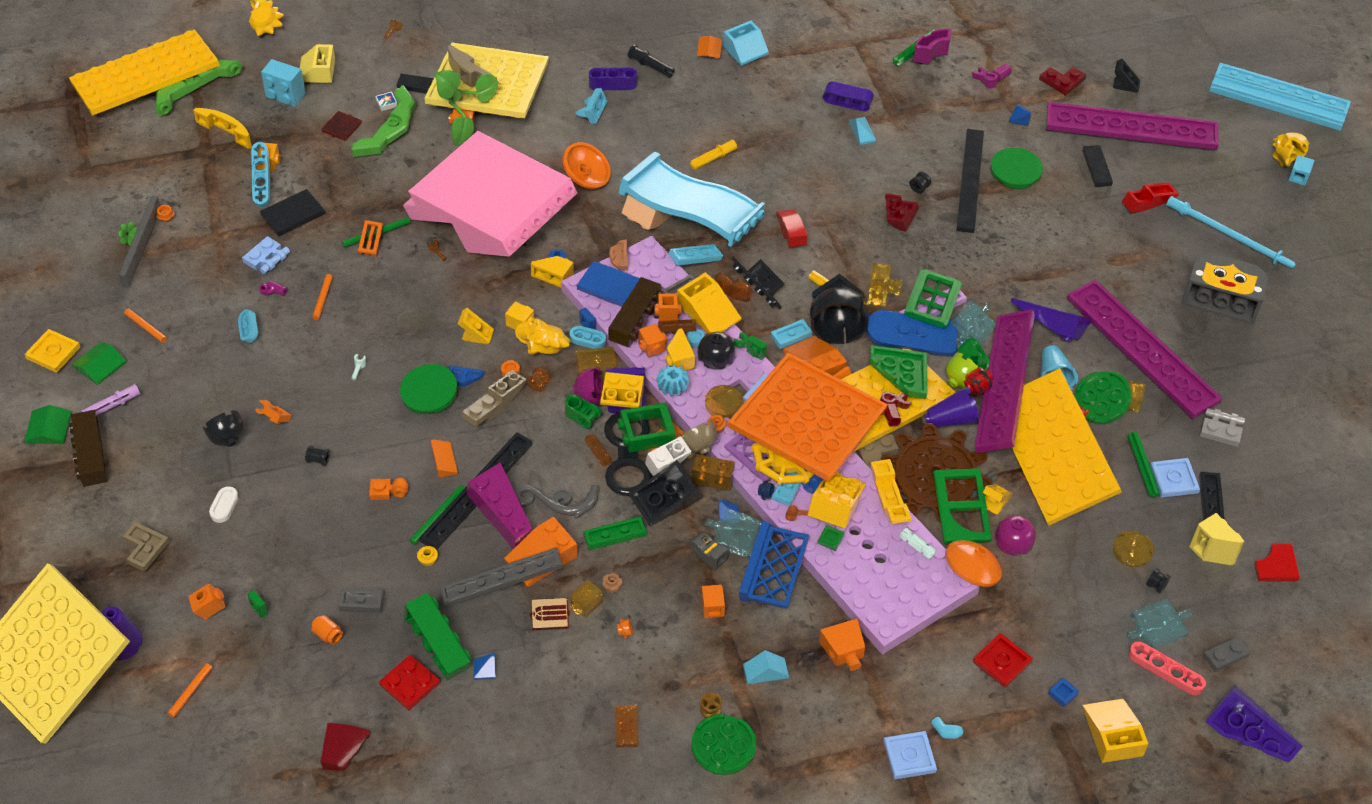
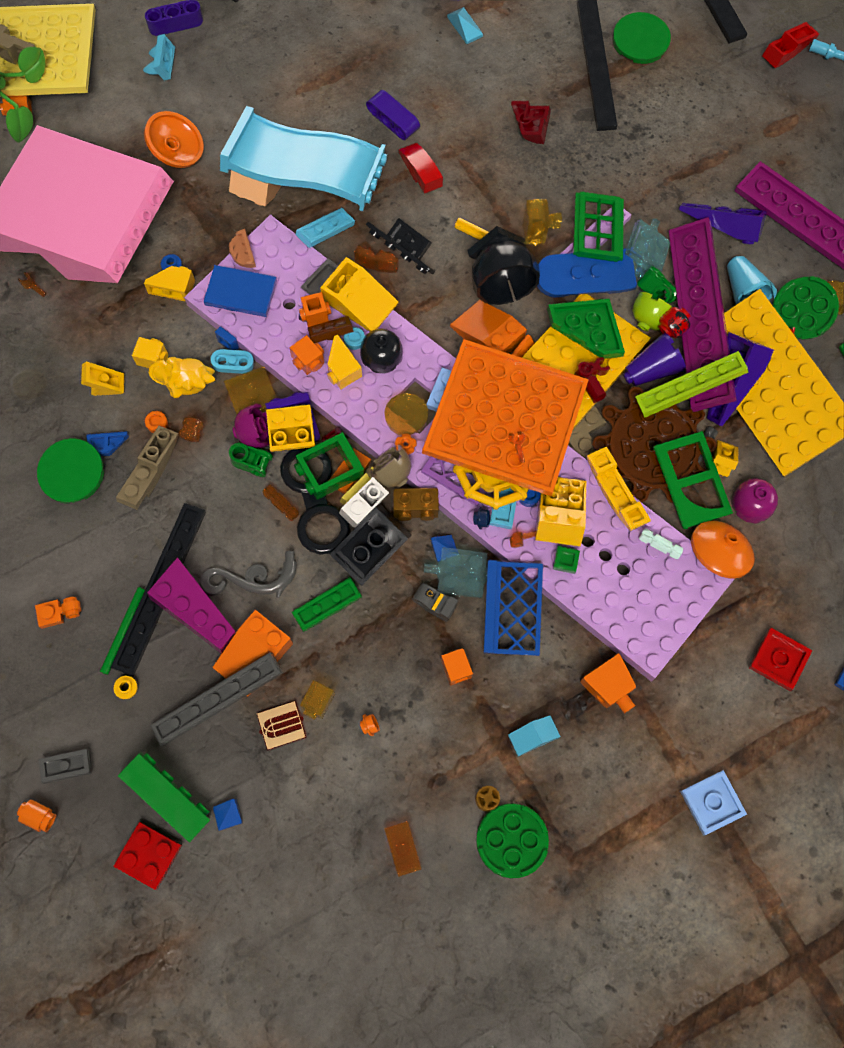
camera: 15 degrees left, 20 degrees up
(341, 745) = (92, 959): dark red slope -> none
(444, 458) = (111, 556): orange slope -> none
(612, 586) = (344, 673): medium nougat plate -> none
(634, 312) = (278, 322): dark brown brick -> none
(672, 380) = (343, 409): medium azure gear -> none
(719, 151) = (317, 86): yellow axle -> none
(754, 346) = (422, 336): green plate -> none
(779, 184) = (393, 114): none -> dark purple beam
(791, 334) = (455, 304): medium azure plate -> none
(810, 435) = (518, 444): none -> clear orange hand
(920, 182) = (545, 79): black wheel -> none
(947, 731) = (743, 762): medium azure arm -> none
(977, 426) = (692, 384): none -> lime plate
(1032, 422) = (756, 359): none -> dark purple wedge

